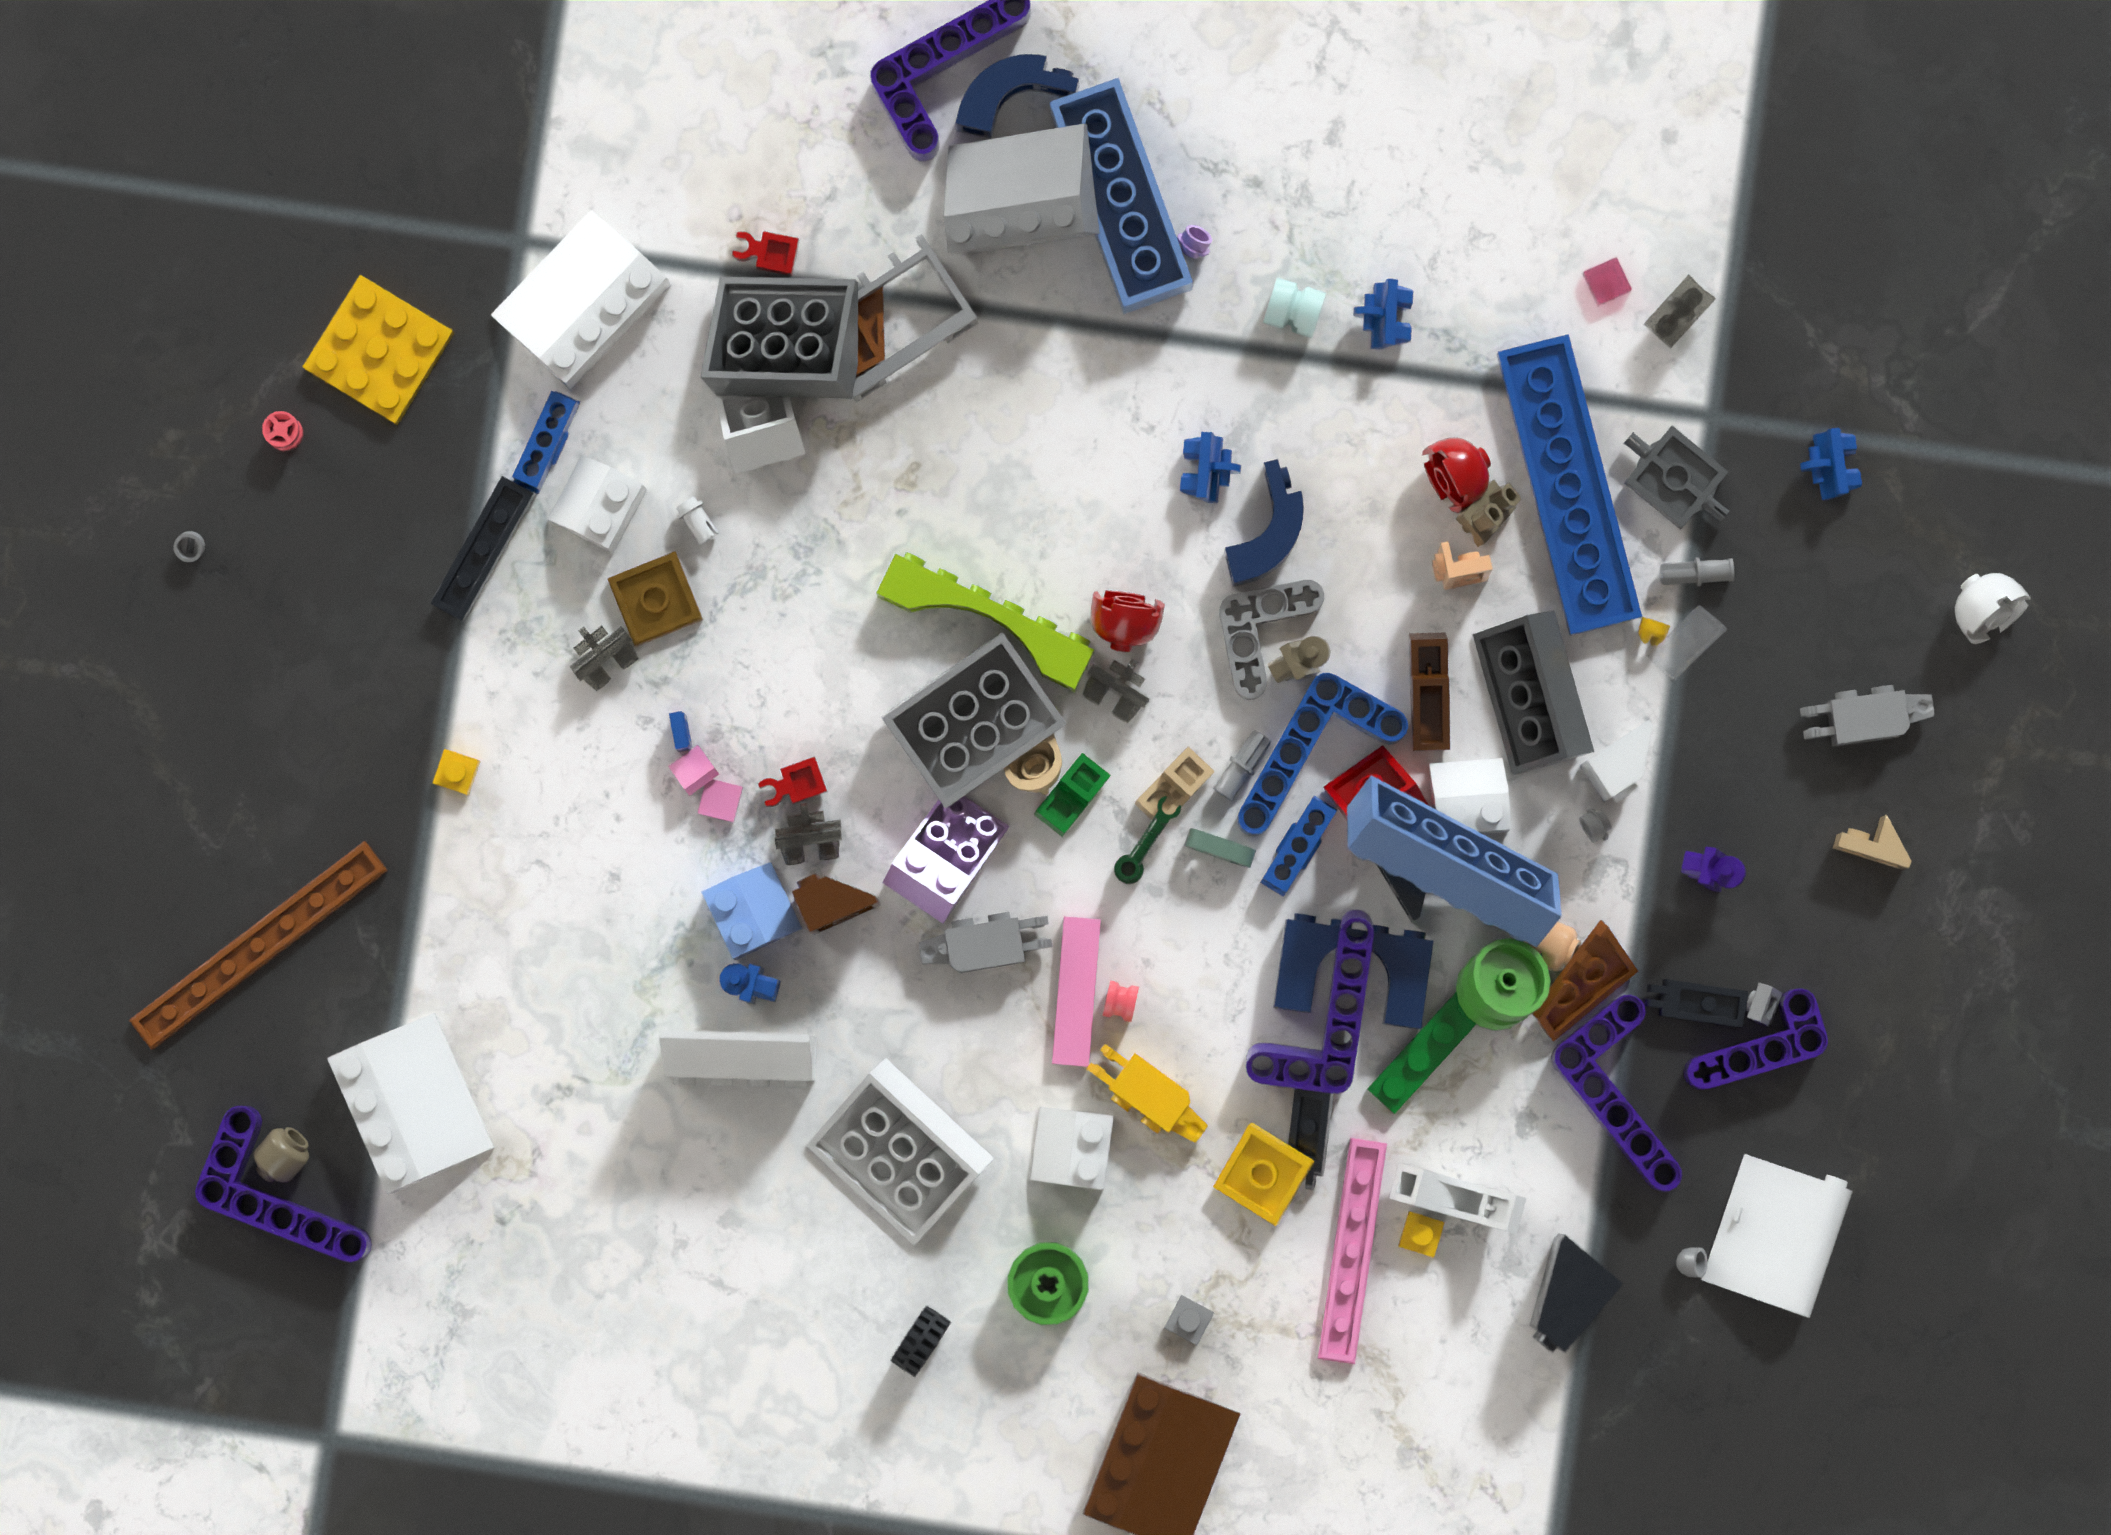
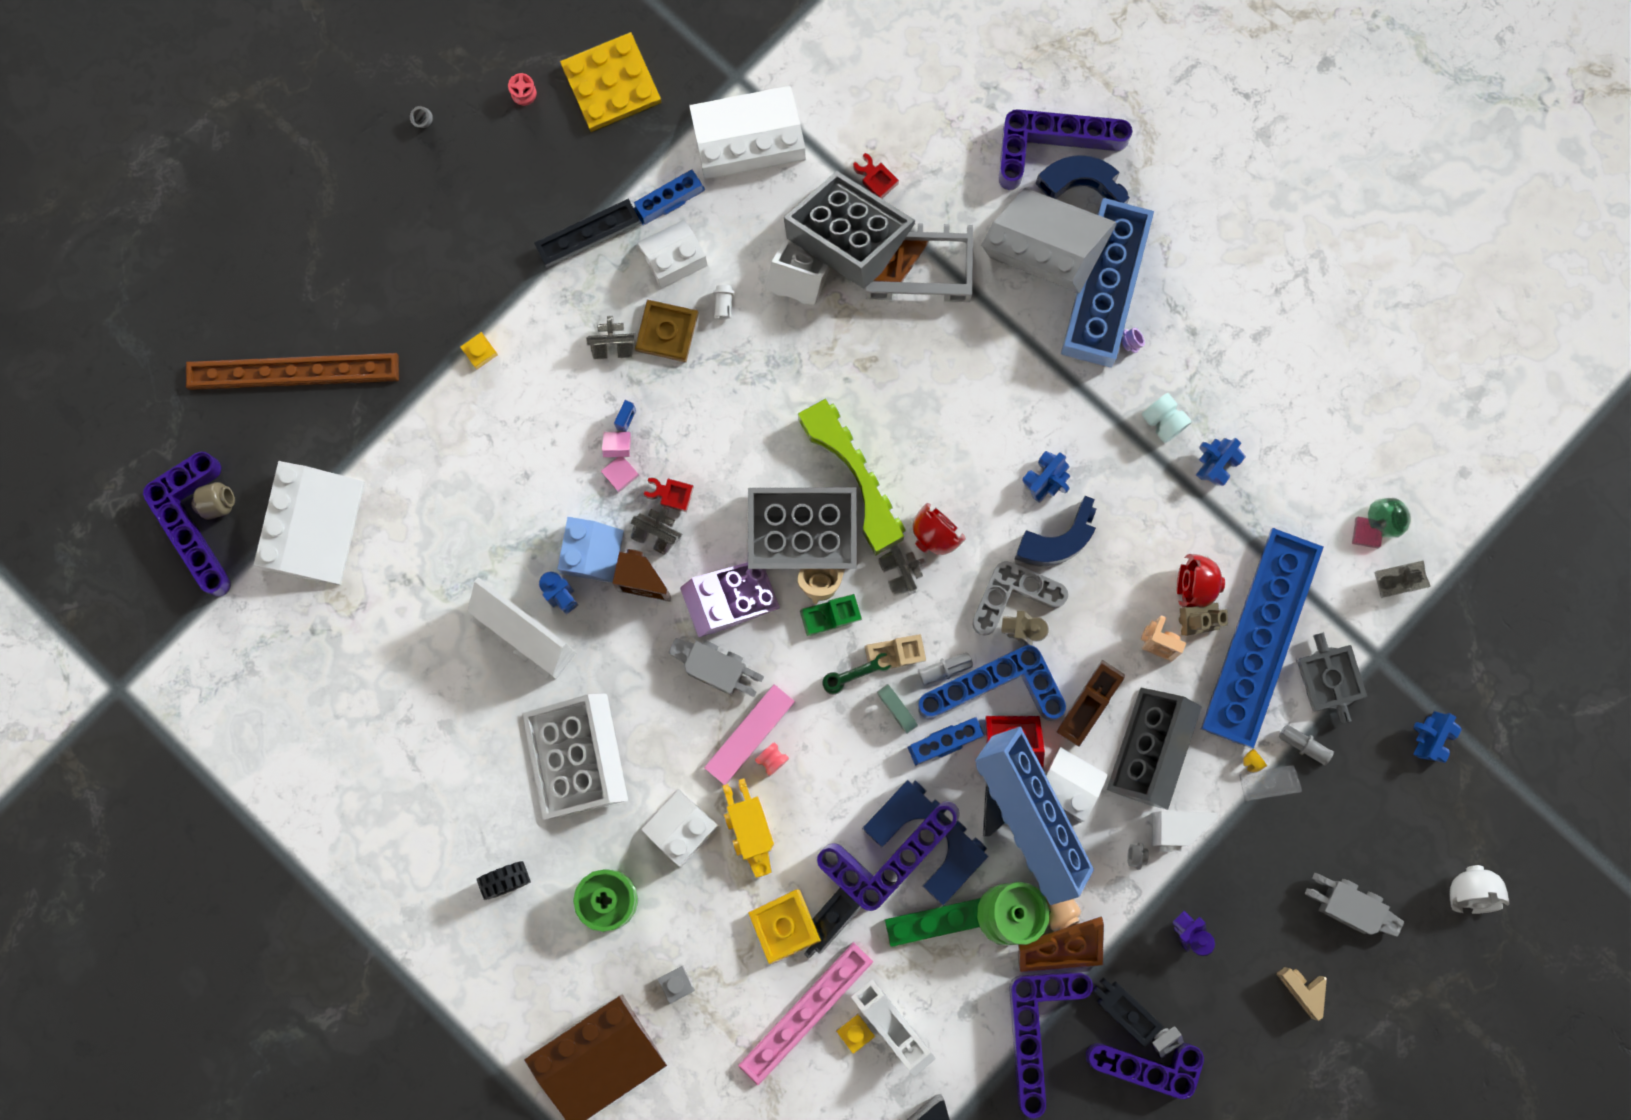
camera: 30 degrees right, 5 degrees down
(1619, 249) = (1389, 517): none -> clear green hair

